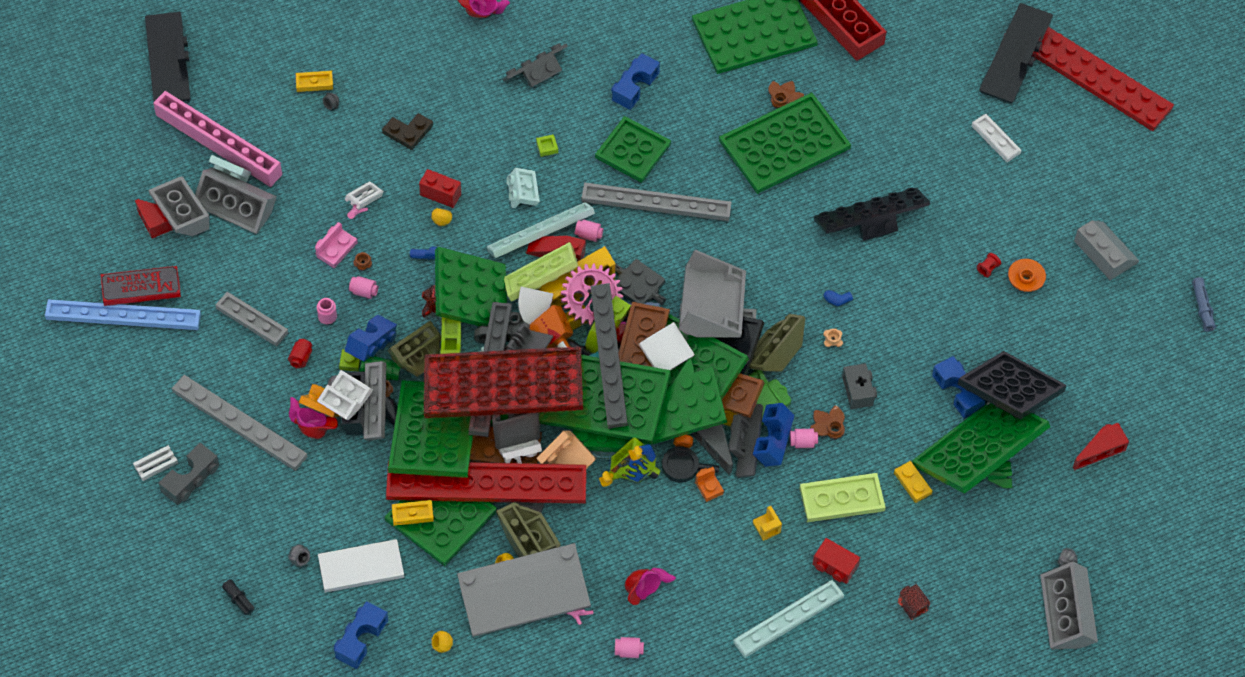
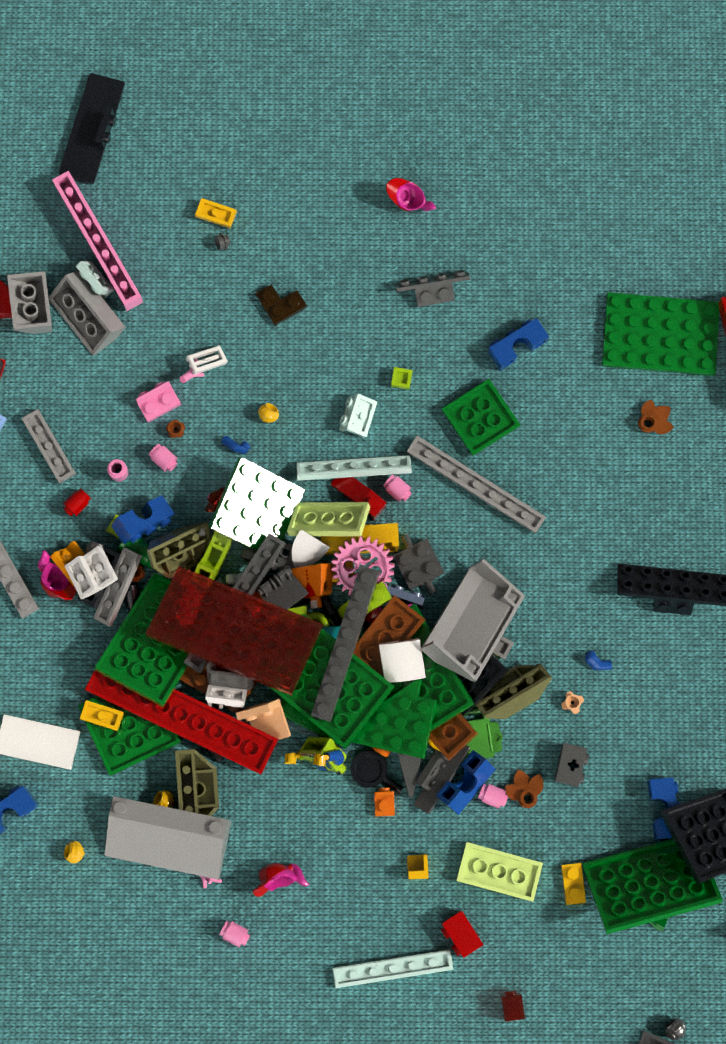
camera: 25 degrees right, 20 degrees up
(440, 188) = (279, 383): red piece -> none
(784, 142) = (629, 473): green plate -> none

